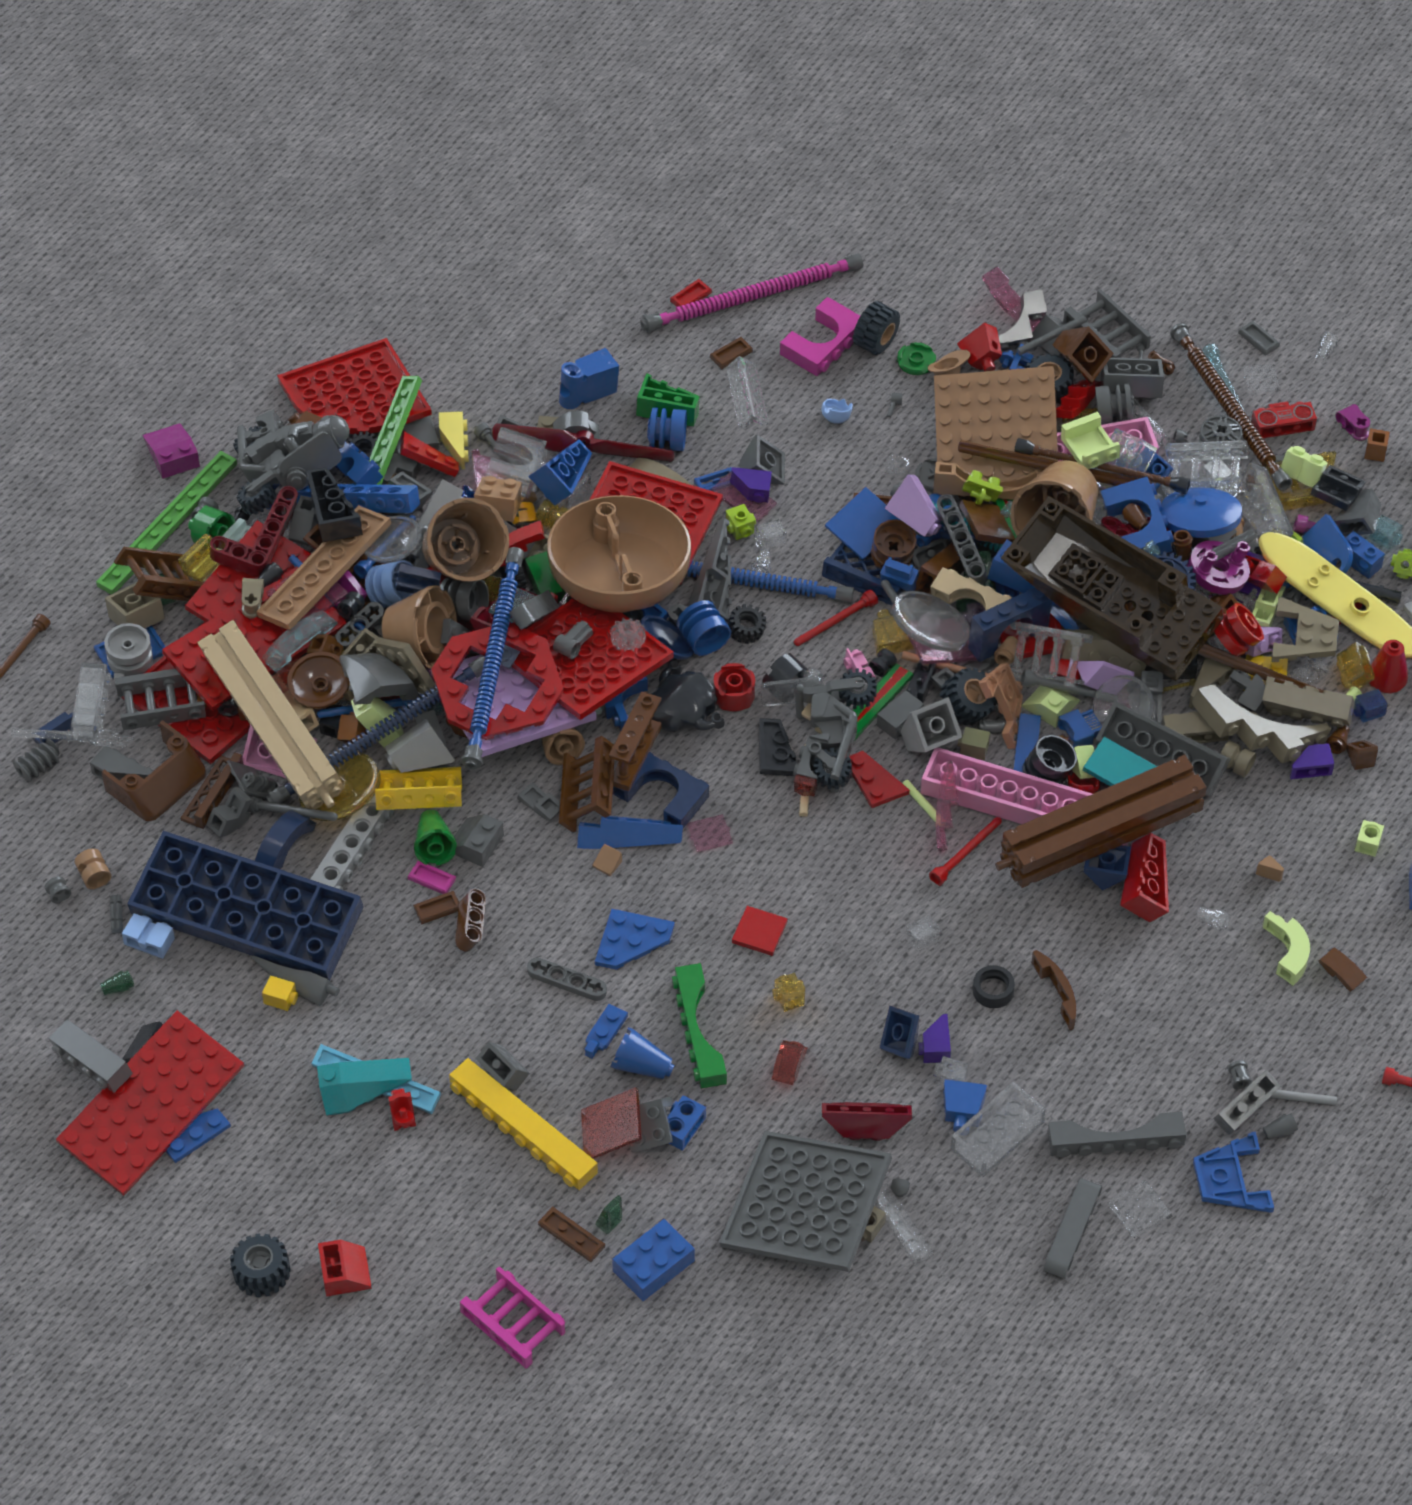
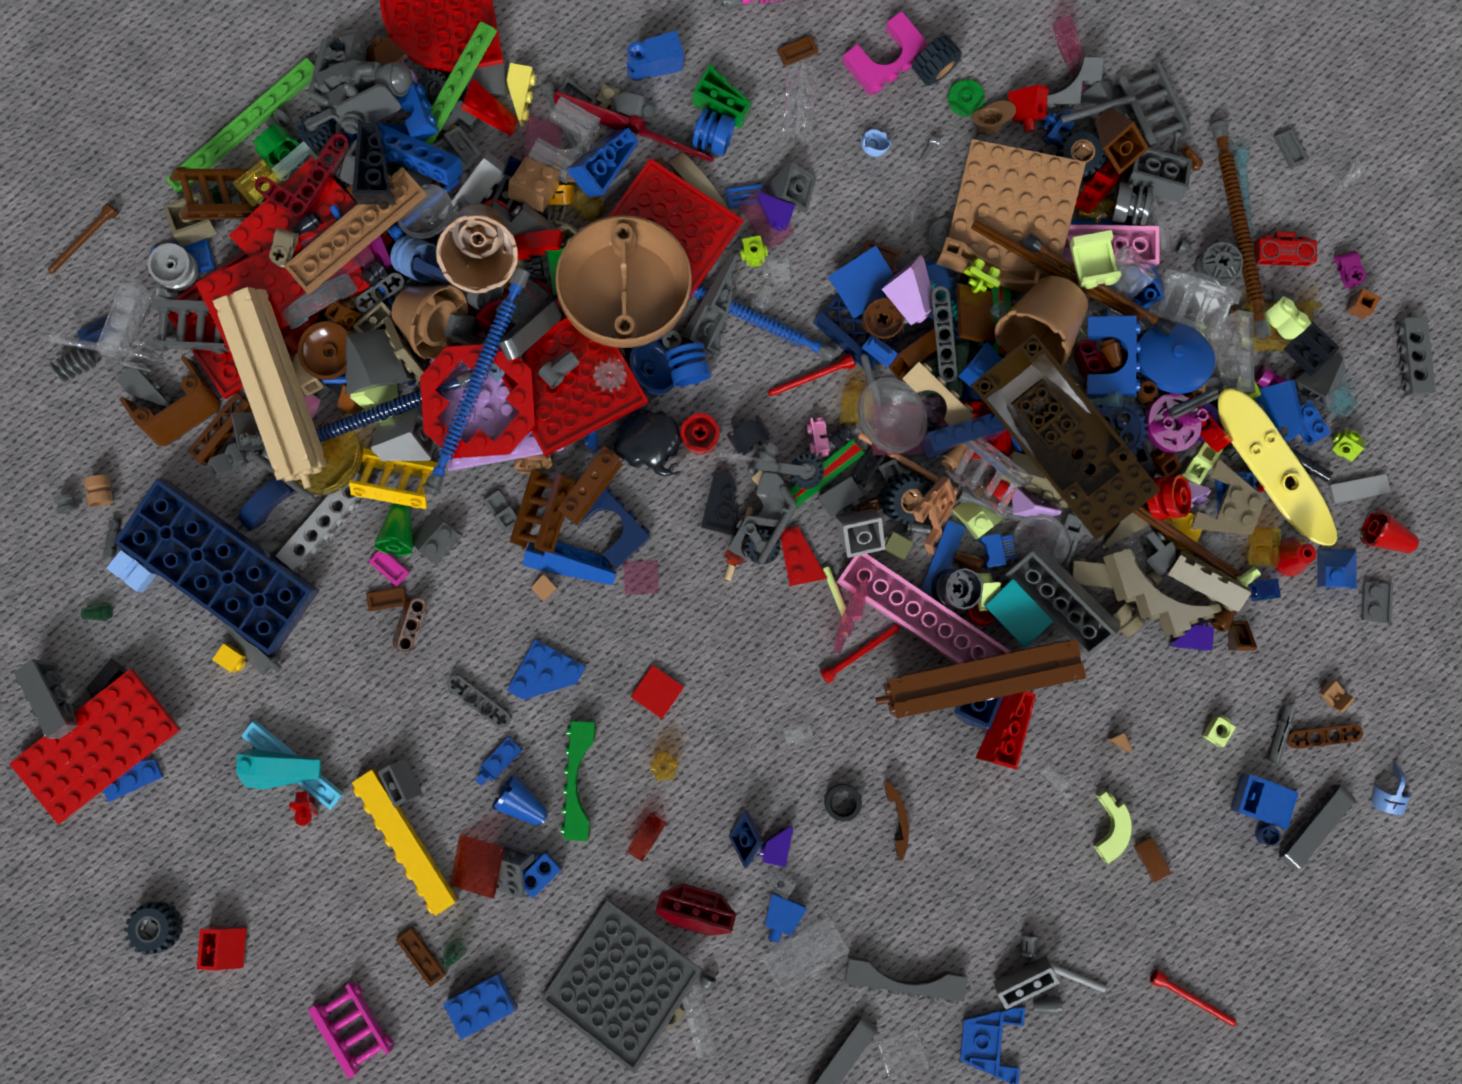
camera: 15 degrees right, 30 degrees up
(172, 450) = (263, 44): magenta slope -> none
(749, 614) = (739, 356): black tyre -> none

